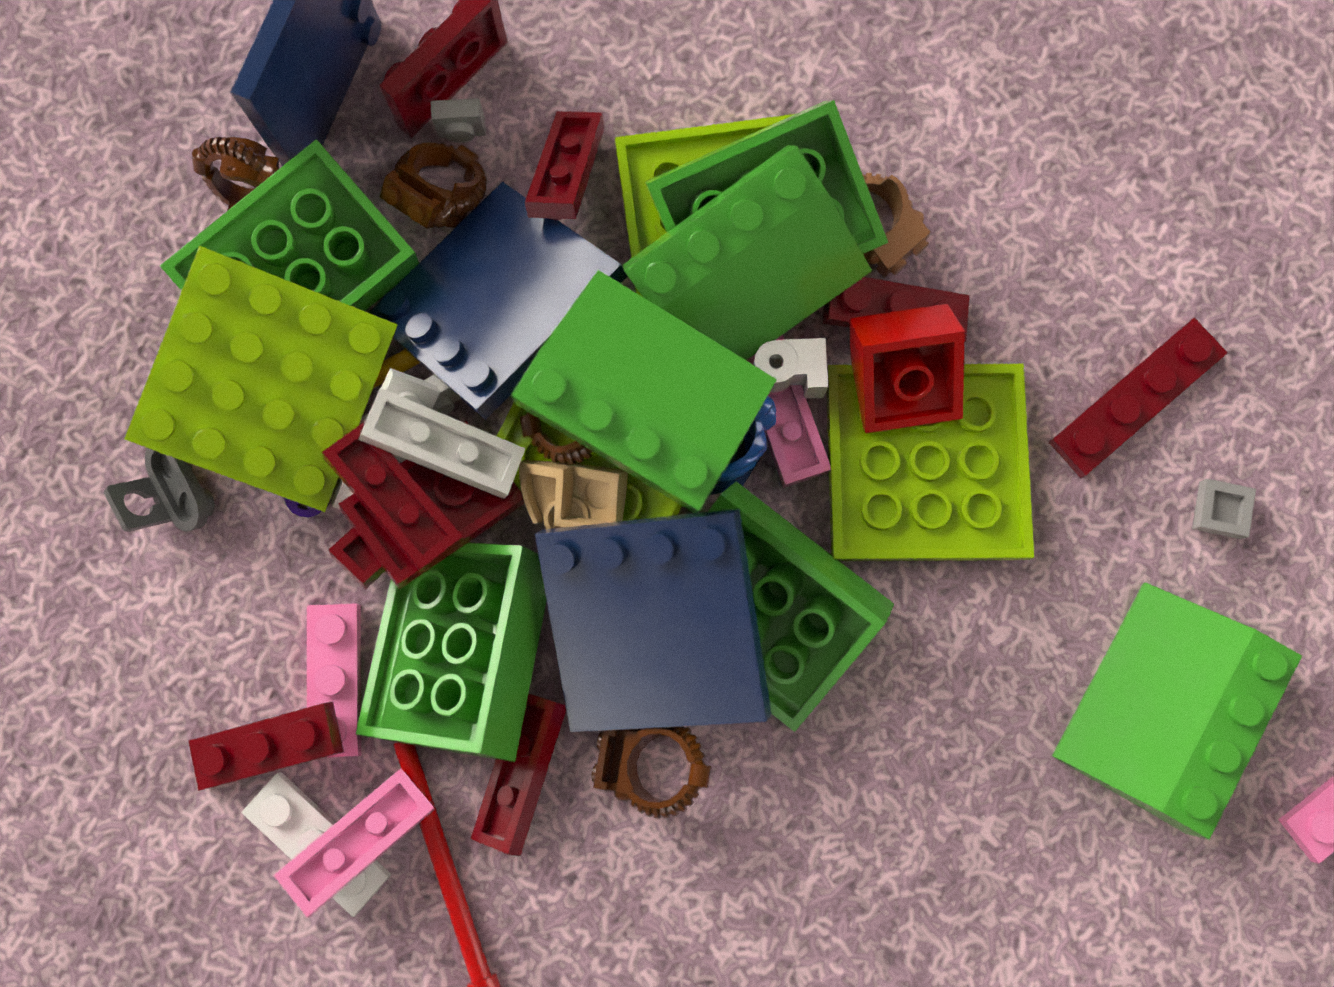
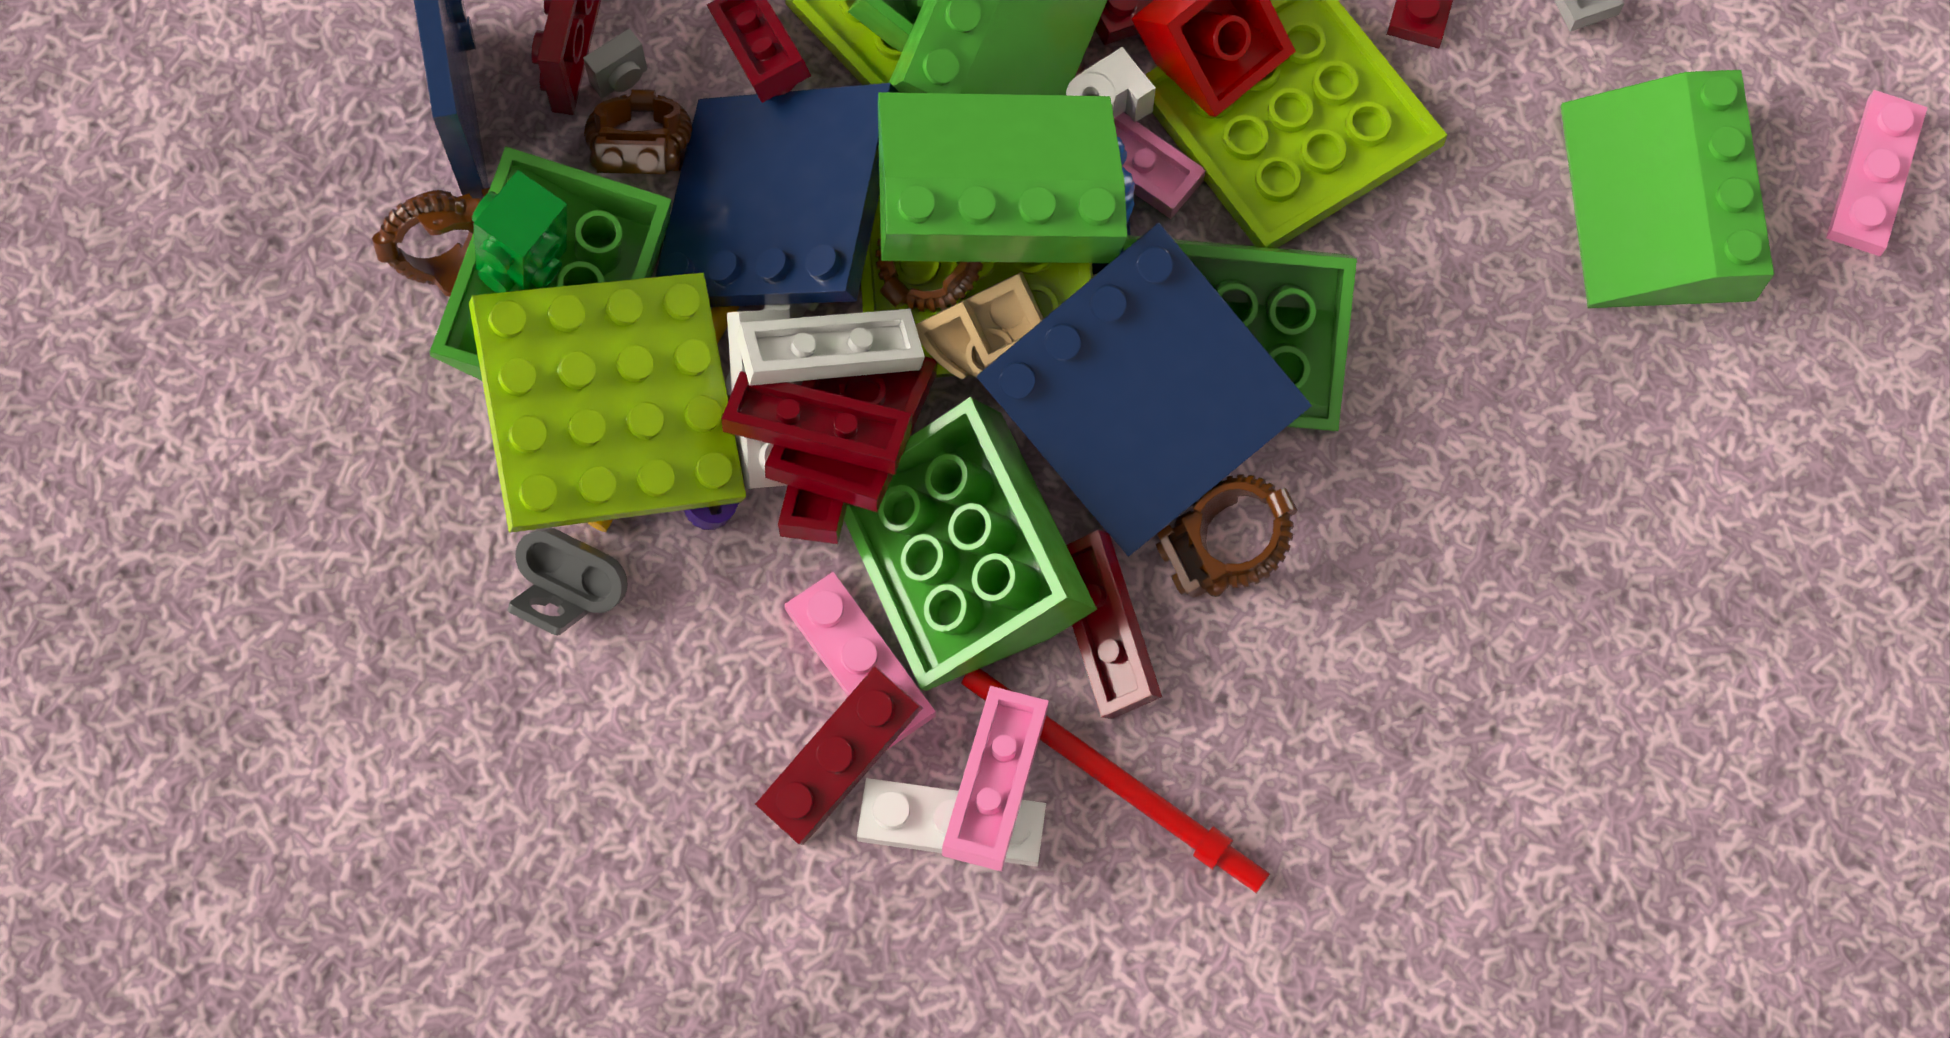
camera: 35 degrees left, 10 degrees down
(257, 221) = (519, 236): none -> green brick

